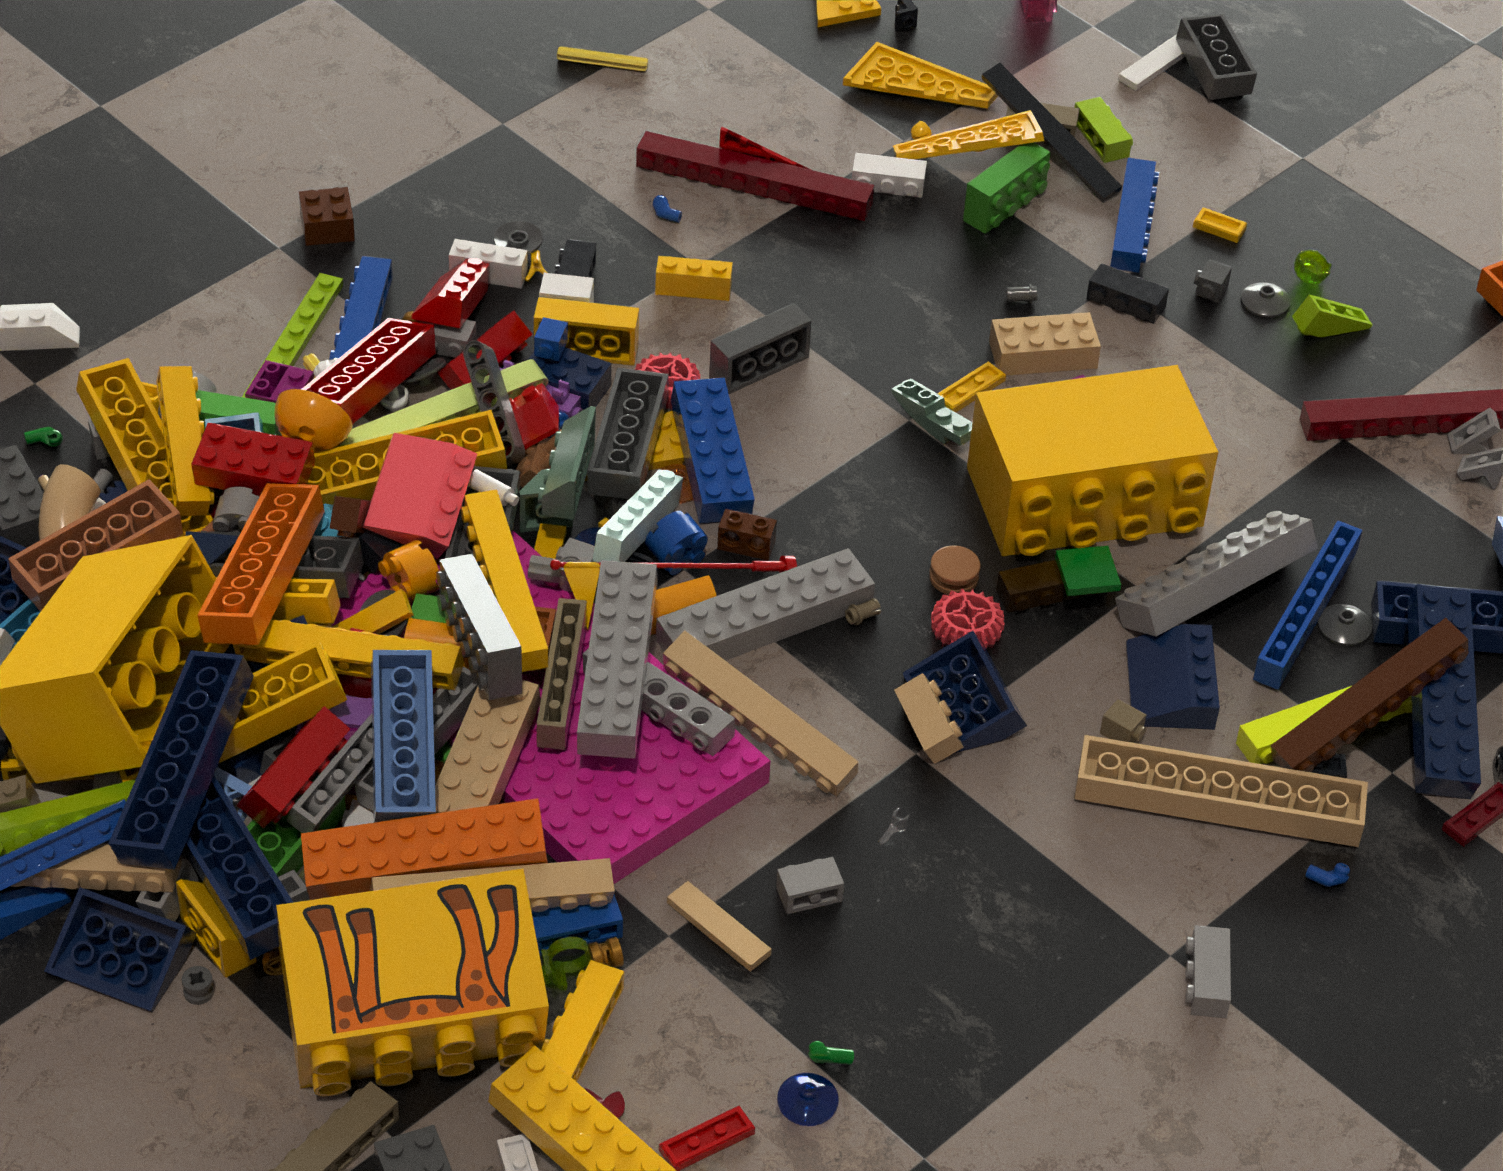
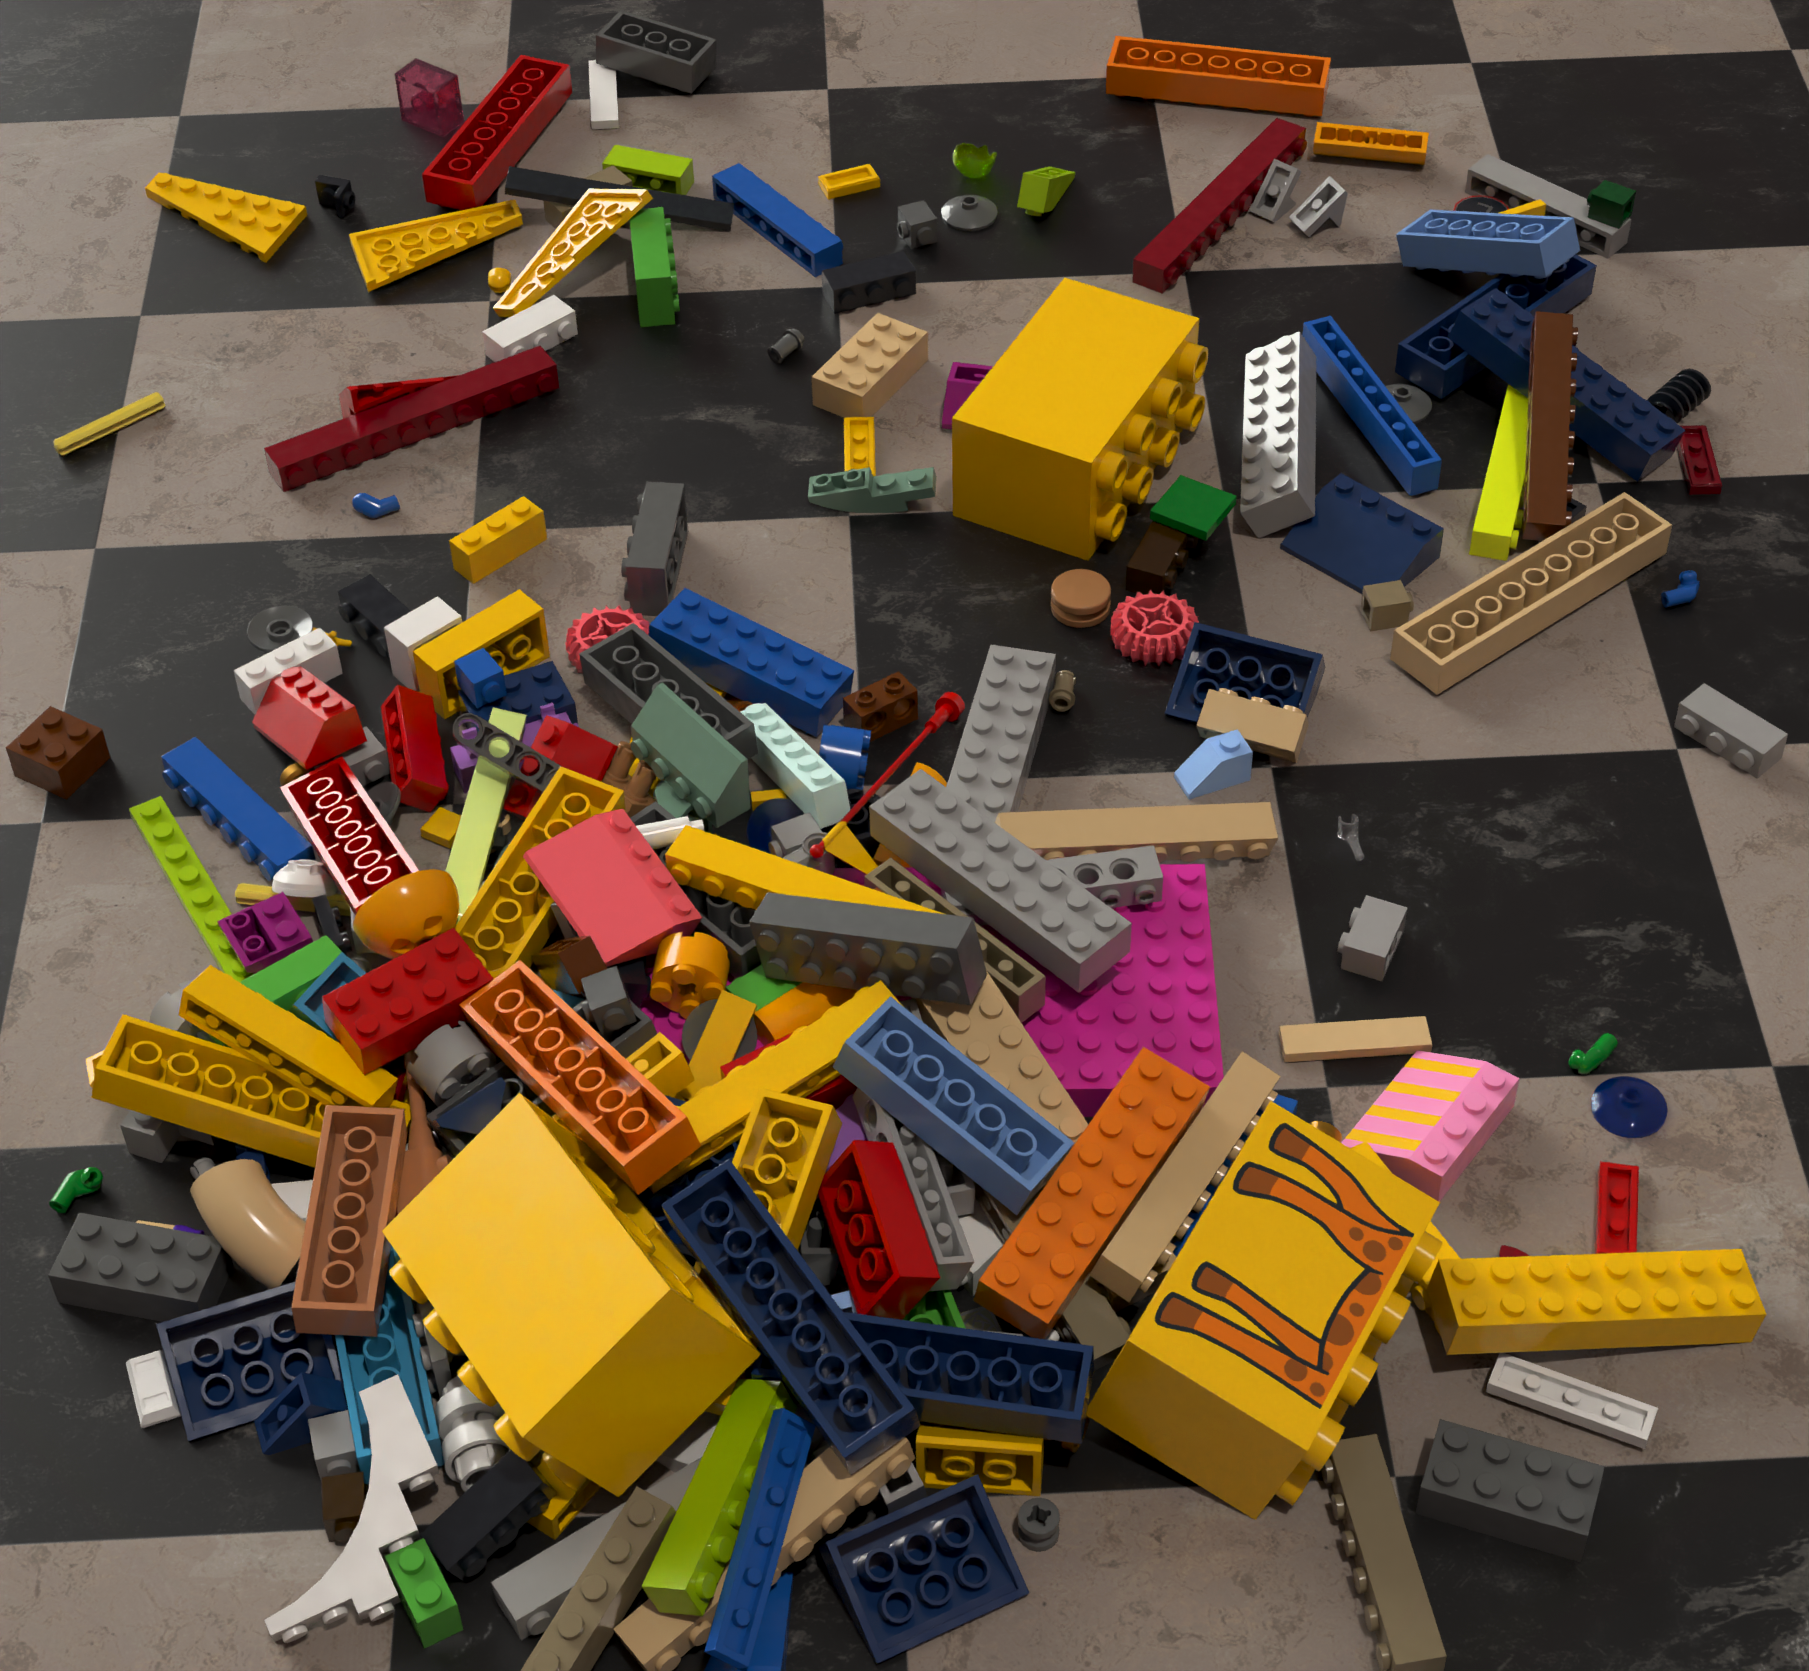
camera: 45 degrees left, 0 degrees up
(334, 543) = (607, 1001): none -> dark grey brick
(686, 1003) = (1436, 1118): none -> bright pink slope
(877, 722) = (1216, 765): none -> light blue slope
(1049, 39) = (497, 133): none -> red brick

